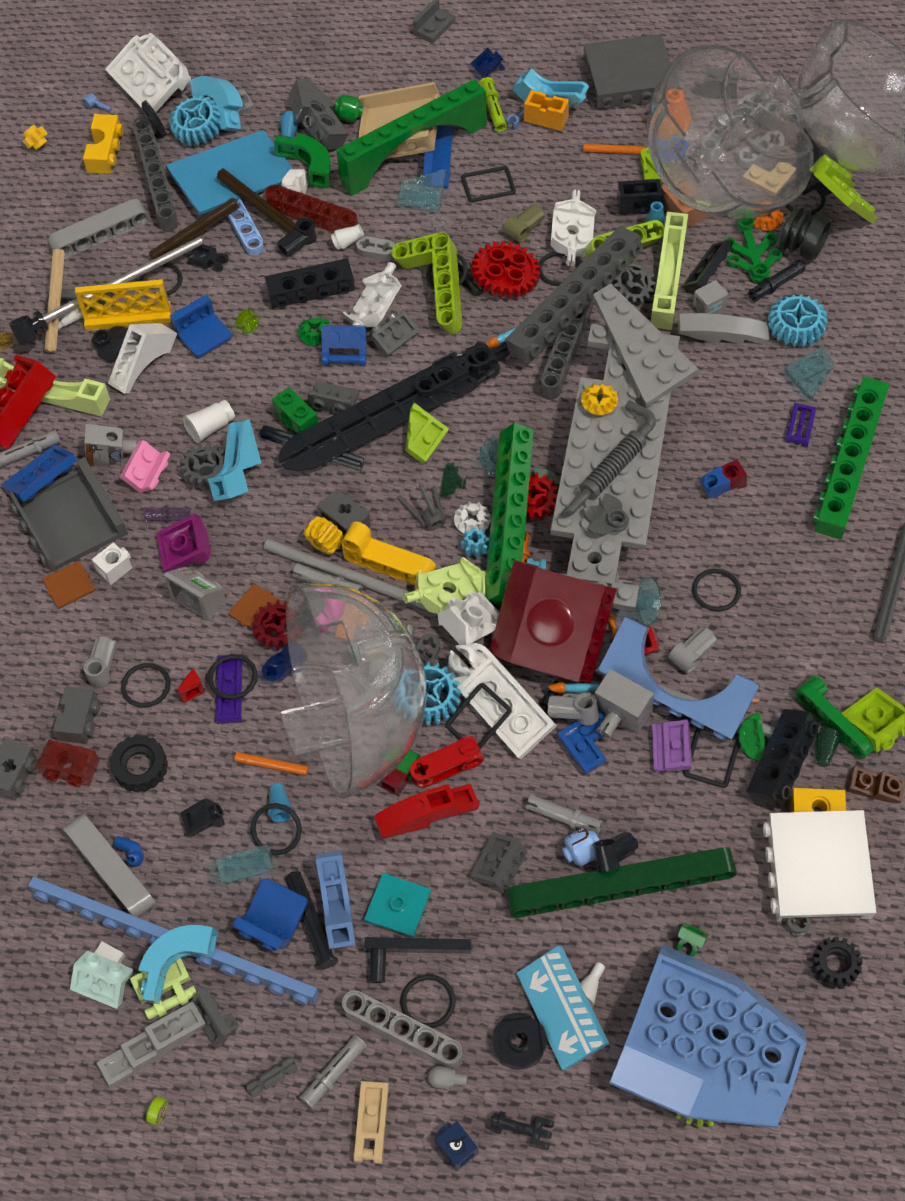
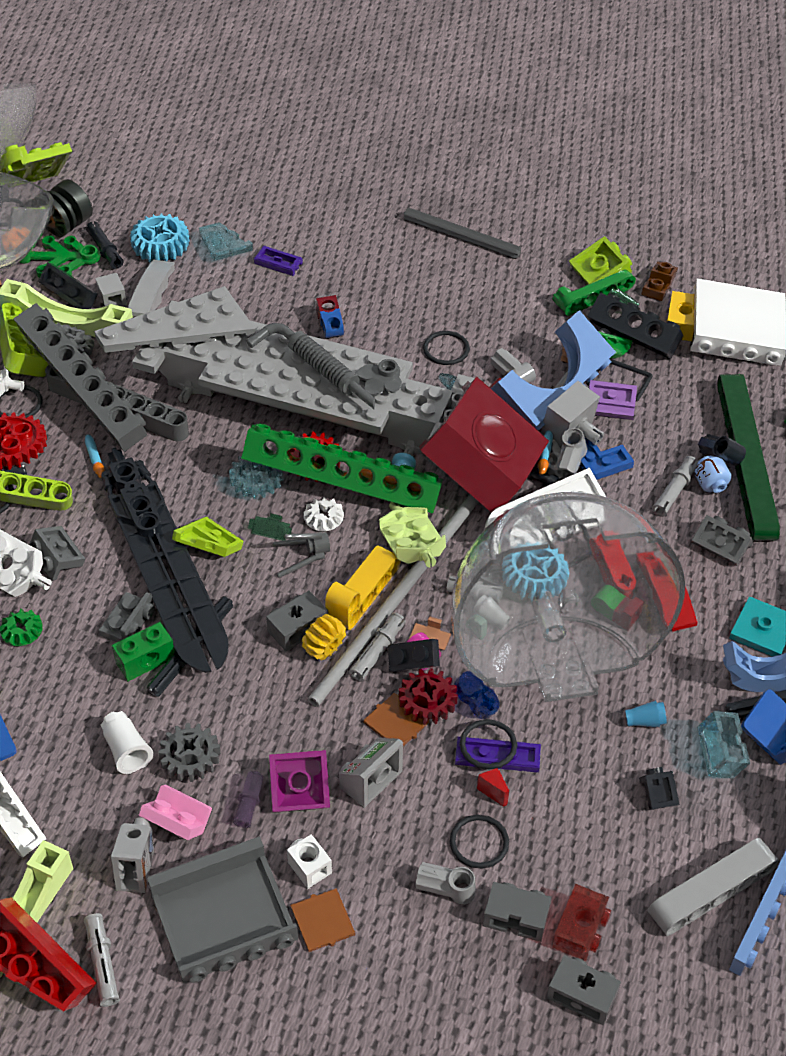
camera: 85 degrees left, 10 degrees down
(39, 472) = (151, 938): blue plate -> none
(132, 849) = (694, 863): blue arm -> none
(135, 745) = (590, 827): black tyre -> none
(239, 454) = (202, 709): medium azure arch -> none
(271, 763) = (596, 722): orange bar -> none
(288, 810) = (695, 737): black piece -> none
(344, 337) = (52, 591): blue plate -> none
(469, 618) = (457, 519): white slope -> none
(475, 542) = (359, 511): medium azure gear -> none
(590, 401) = (241, 368): yellow gear -> none
(862, 425) = (328, 231): green brick -> none

